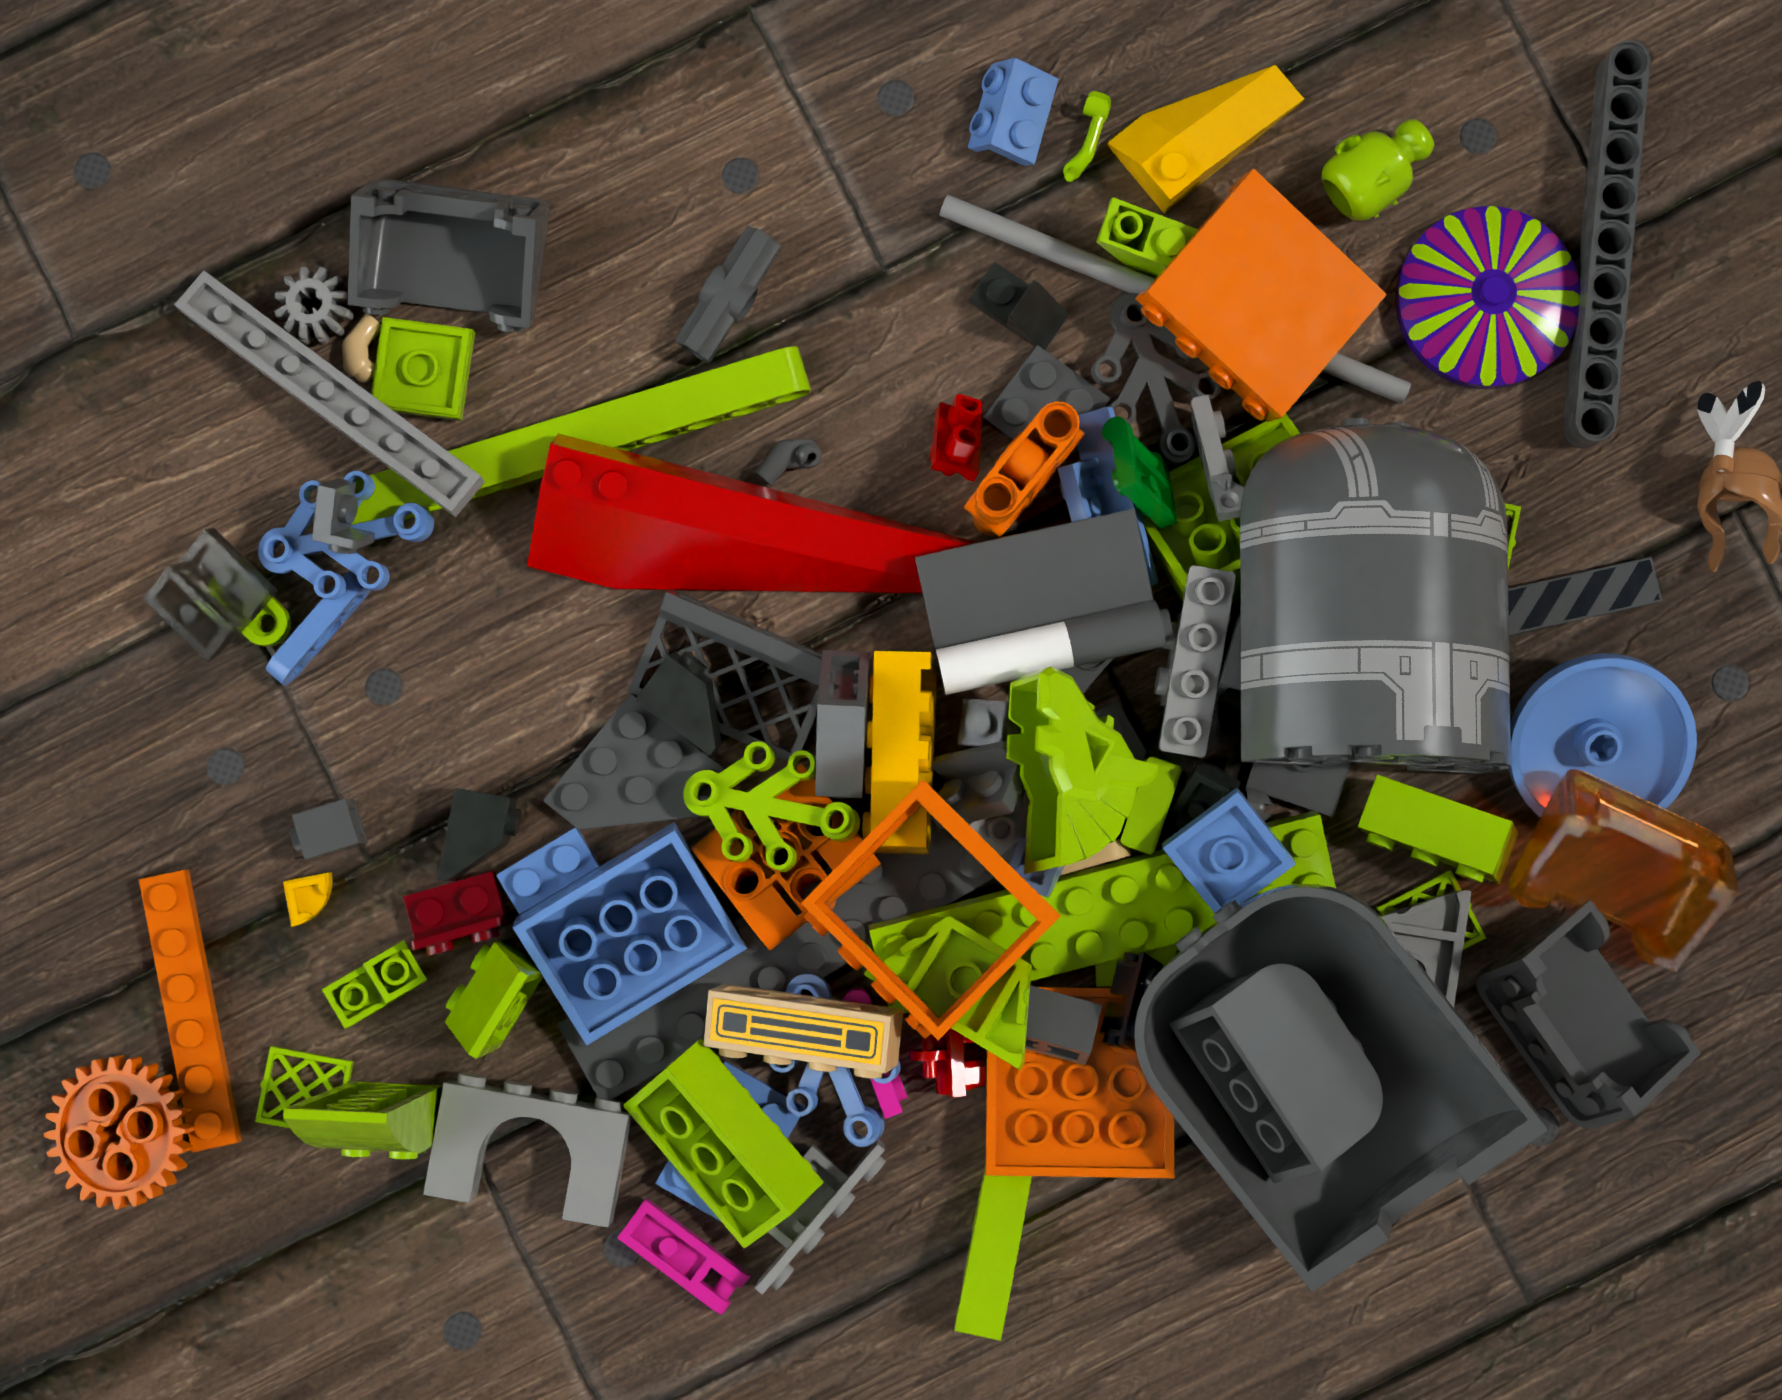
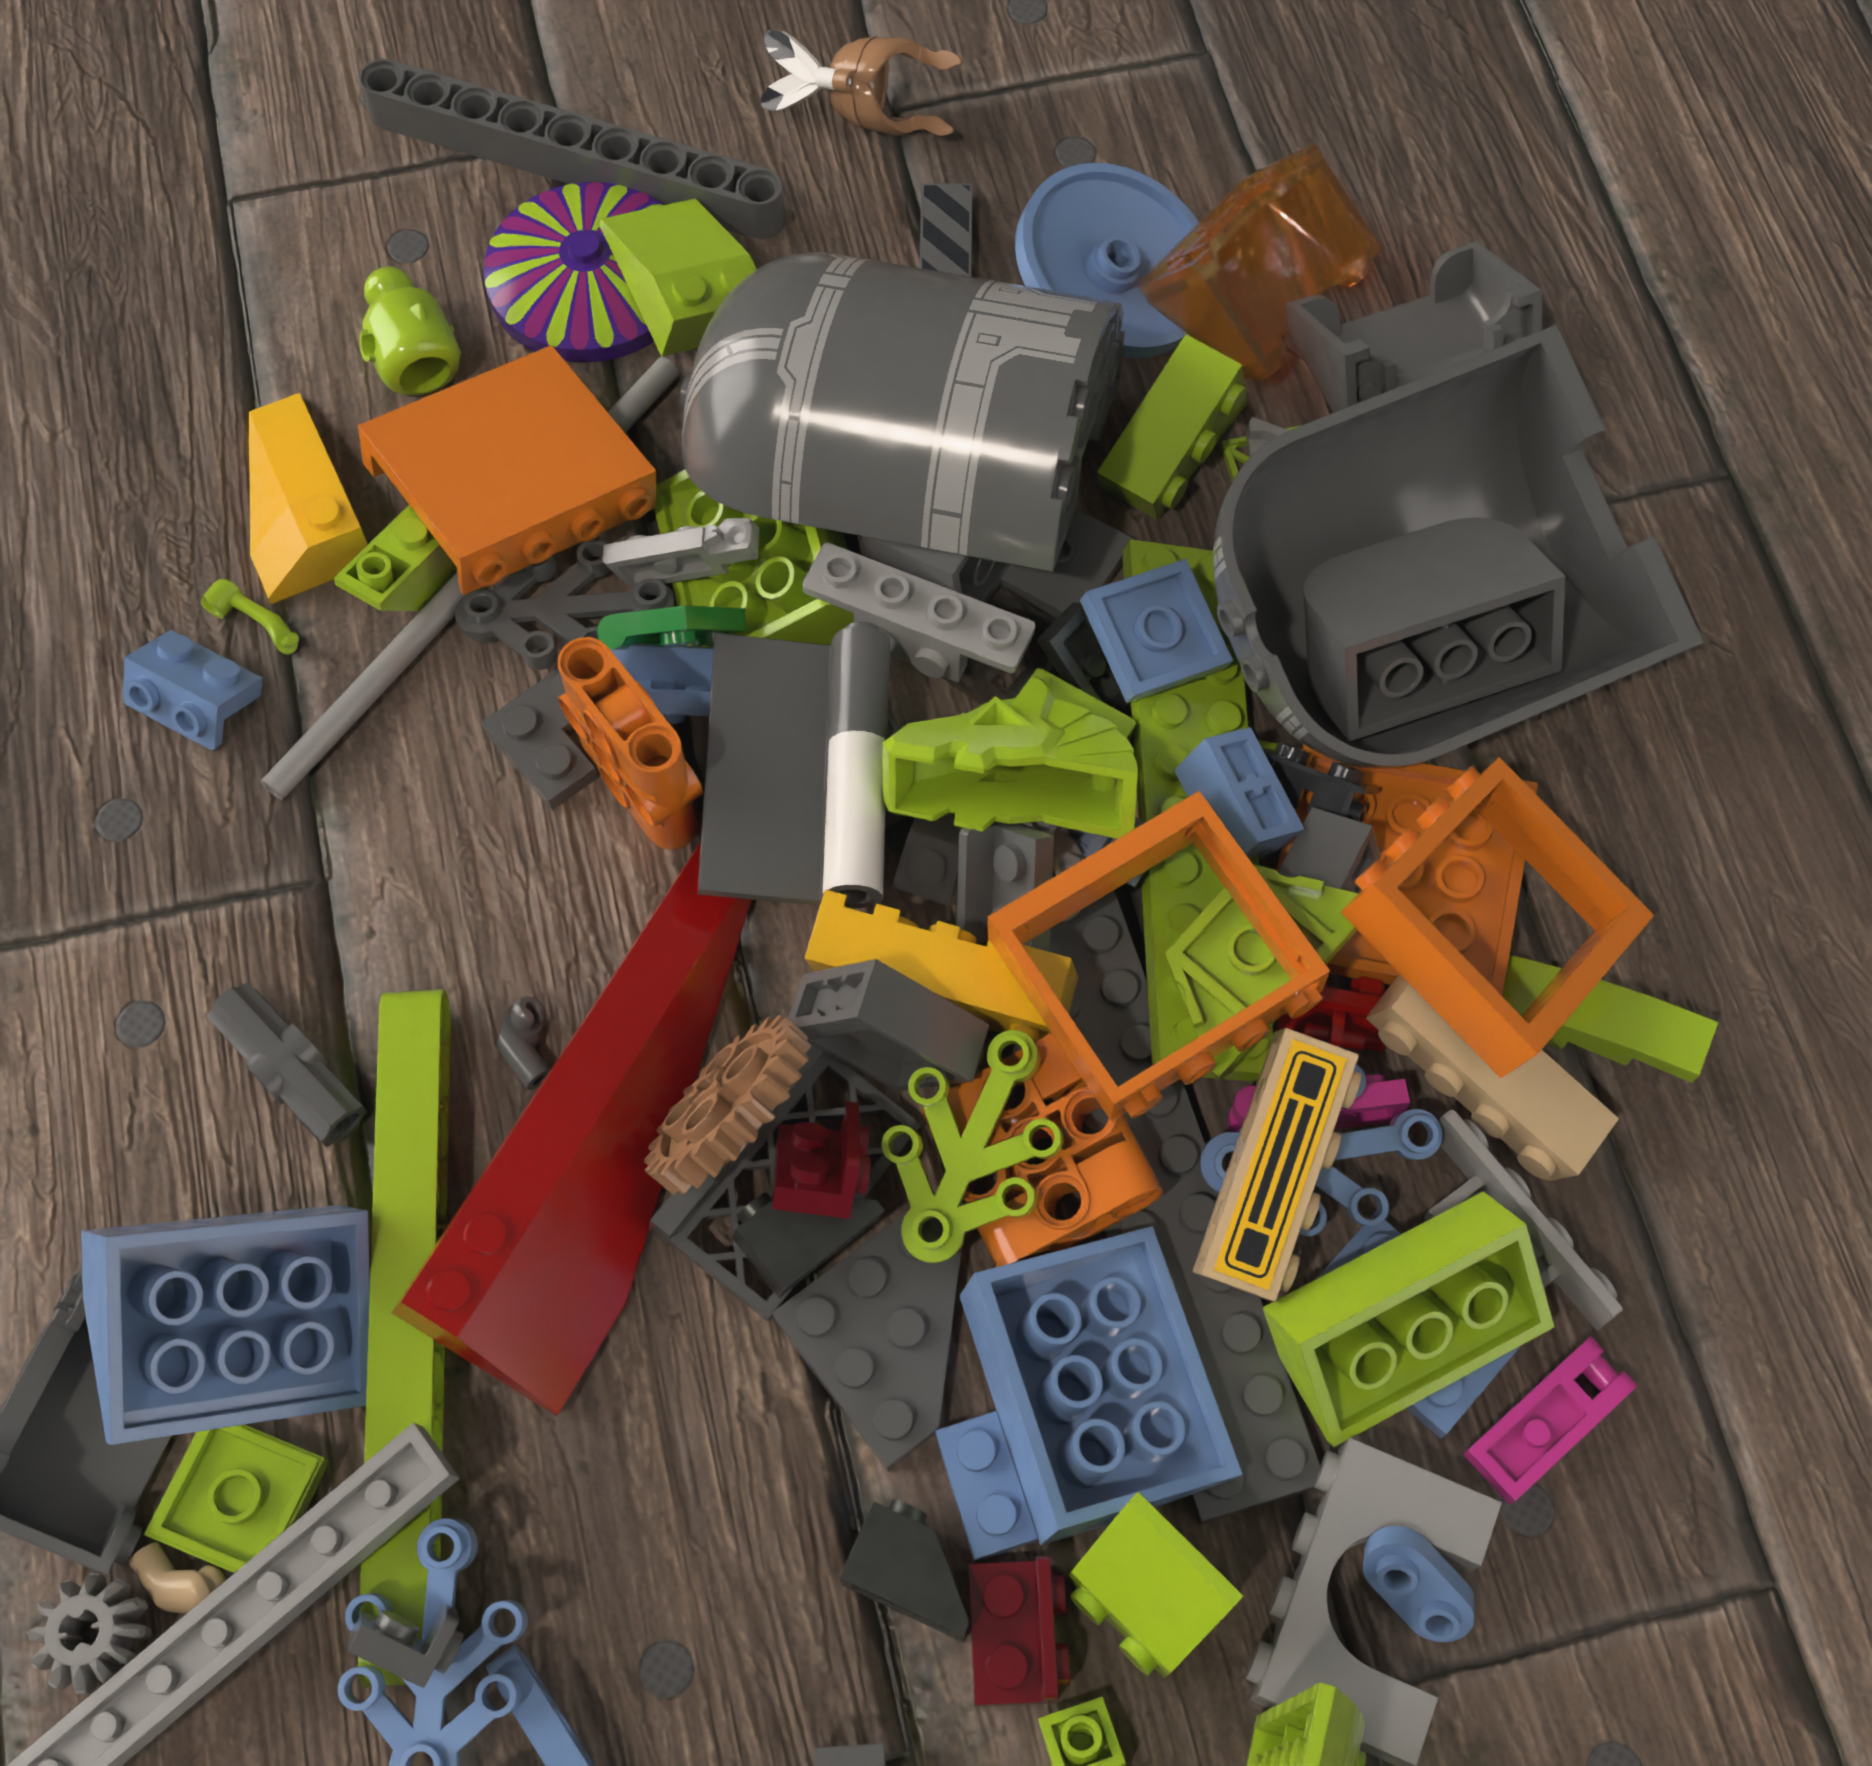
camera: 80 degrees left, 20 degrees down
(526, 326) = (227, 1319): none -> medium blue slope
(543, 1179) = (1427, 1592): none -> medium blue plate
(728, 700) = (821, 1167): none -> dark red bracket
(752, 625) = (727, 1104): none -> medium nougat gear
(925, 1174) = (1532, 1109): none -> tan brick
(957, 437) = (565, 827): red hips -> none
(1019, 306) = (434, 730): pearl dark grey slope -> none
(1058, 1255) = (1441, 972): none -> orange window
(1096, 947) = (1242, 791): none -> medium blue hinge
(1494, 379) = (676, 268): none -> lime slope

